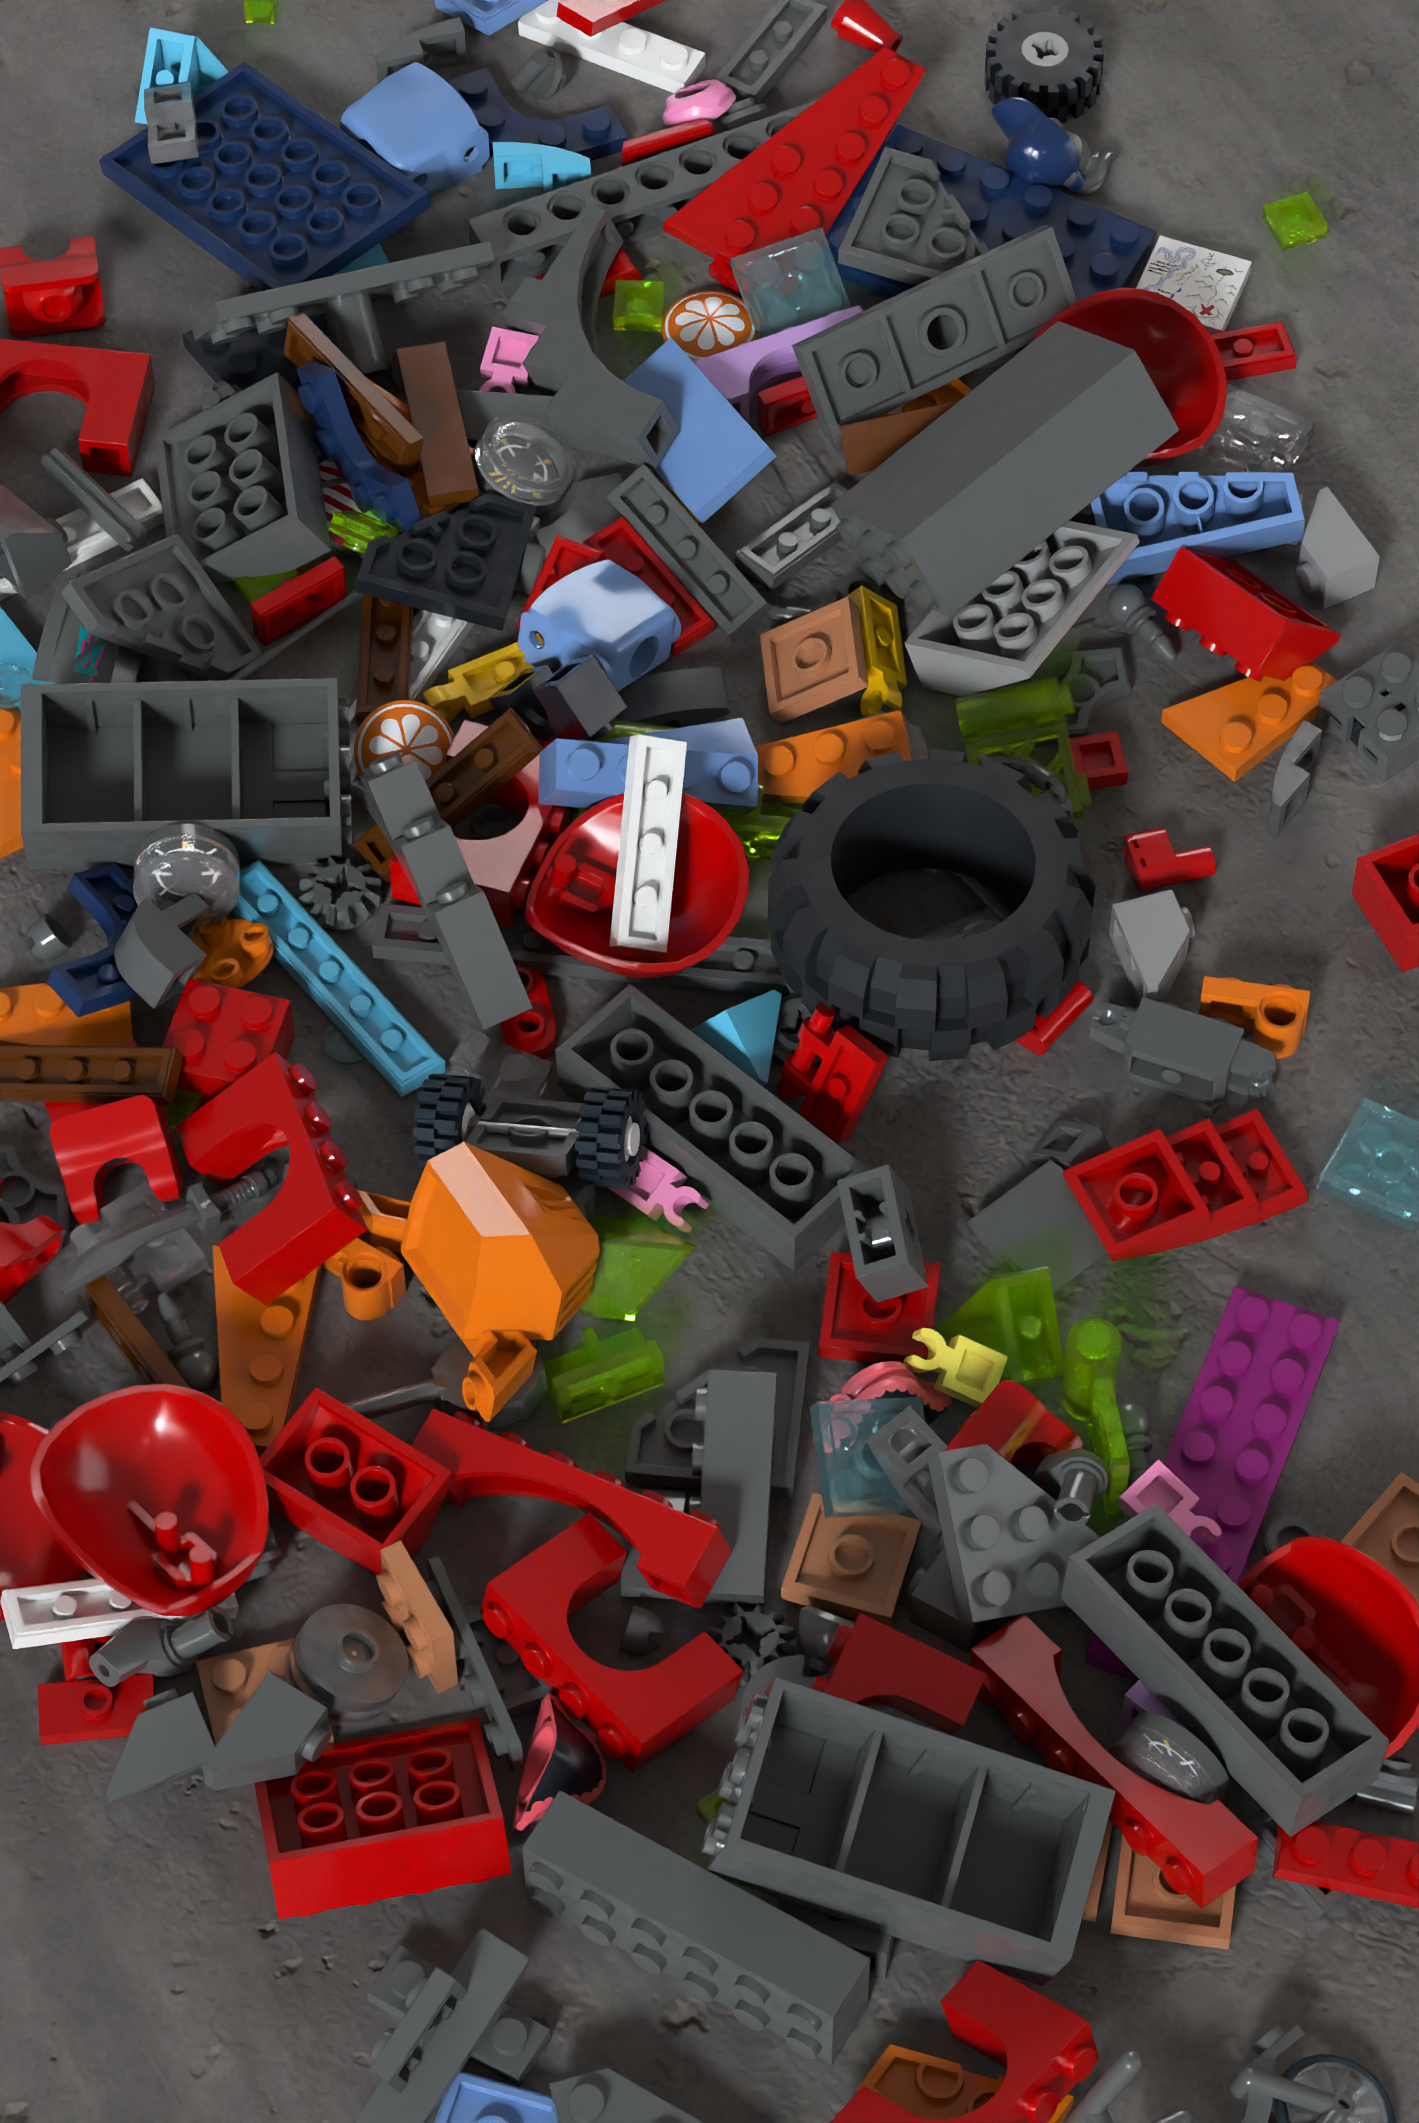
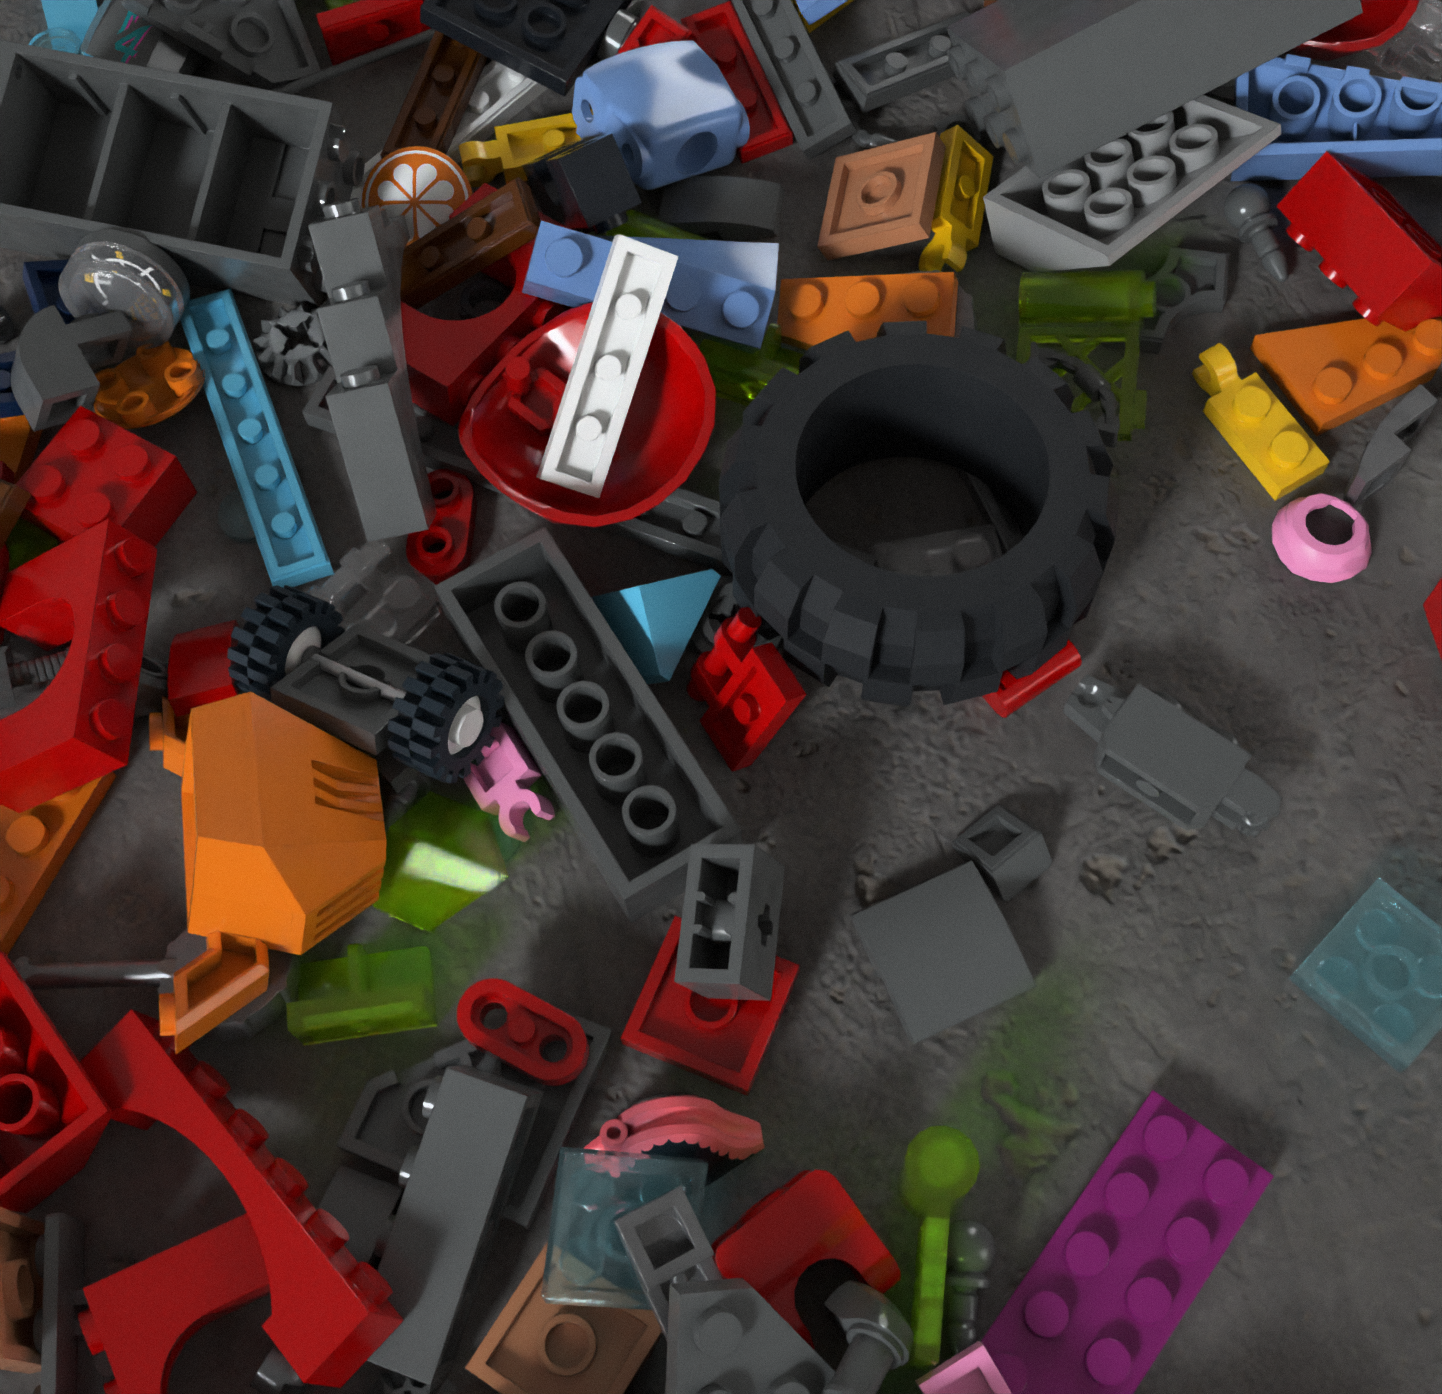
camera: 20 degrees right, 10 degrees up
(365, 1264) = (139, 790): orange plate -> none
(379, 1161) = (200, 667): none -> red slope
(746, 1347) = (525, 1033): none -> red plate
(964, 1367) = (784, 1118): light yellow plate -> none
(1016, 1319) = (861, 1077): clear neon green slope -> none
(1101, 759) = (1168, 377): red plate -> none
(1151, 942) = (1168, 612): light grey slope -> none
(1156, 865) = (1199, 515): red piece -> none
(1183, 782) = (1257, 425): none -> yellow plate
(1185, 1186) = (1125, 938): red slope -> none
(1256, 1009) = (1269, 721): orange plate -> none
(1257, 877) = (1313, 558): none -> bright pink piece

